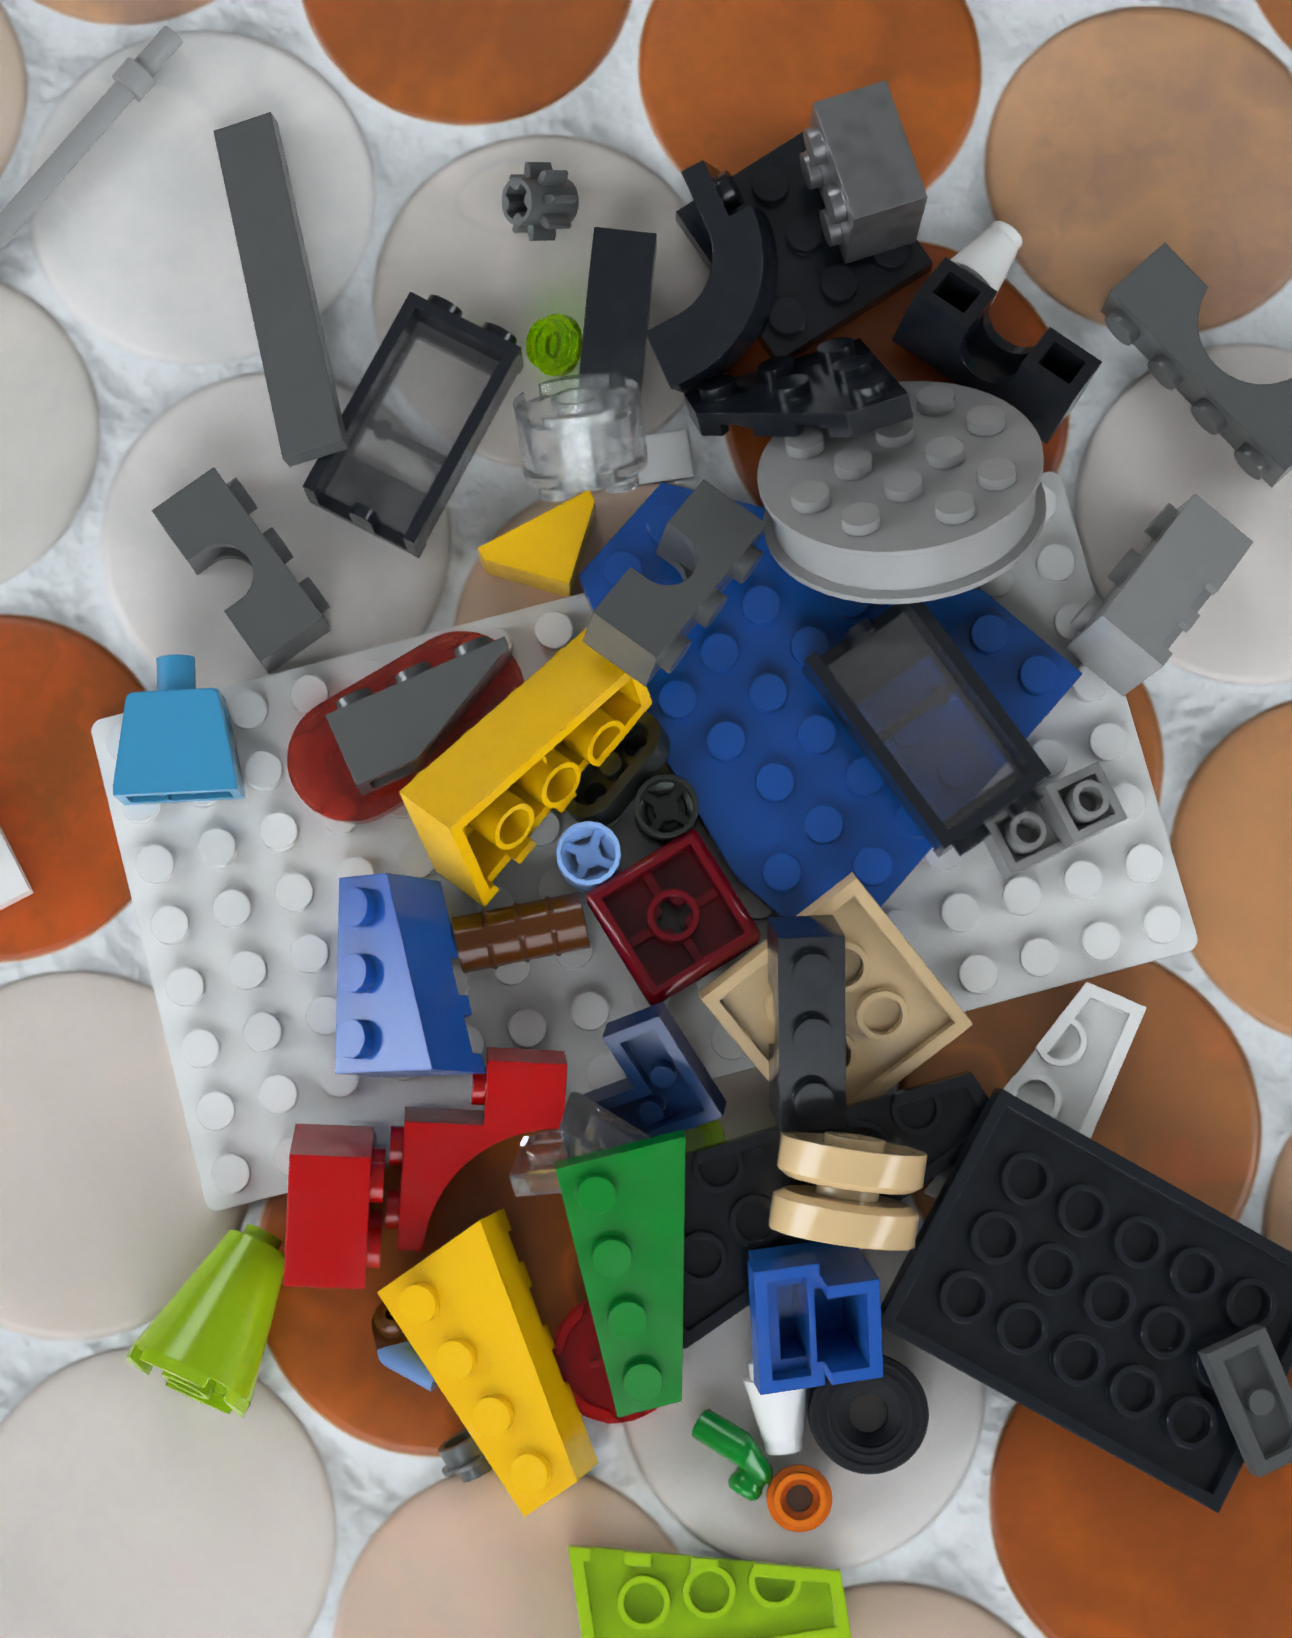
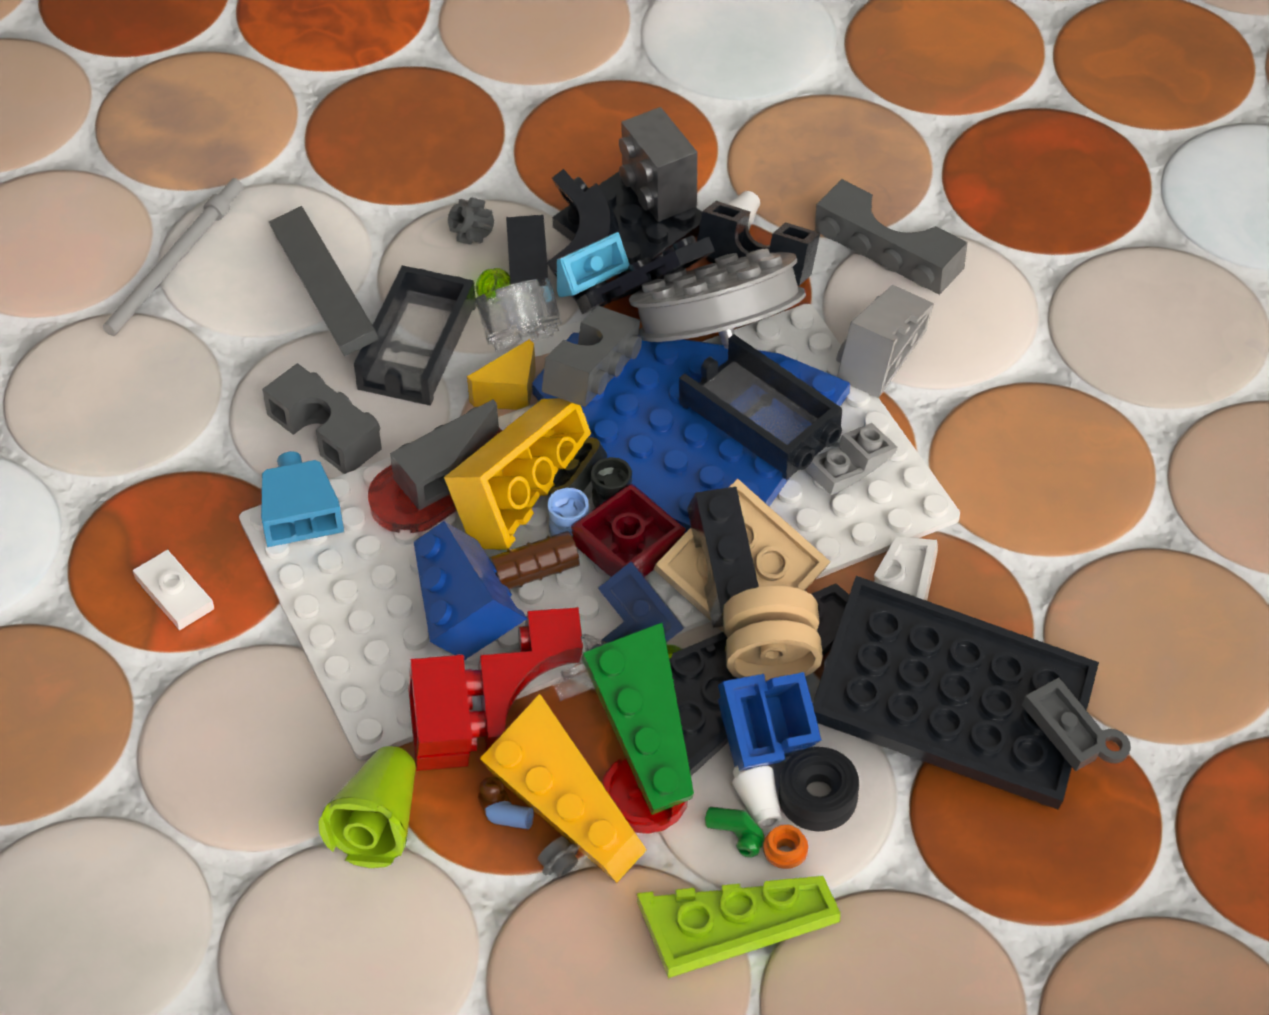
camera: 10 degrees left, 30 degrees down
(713, 374) = (591, 265): none -> medium azure slope

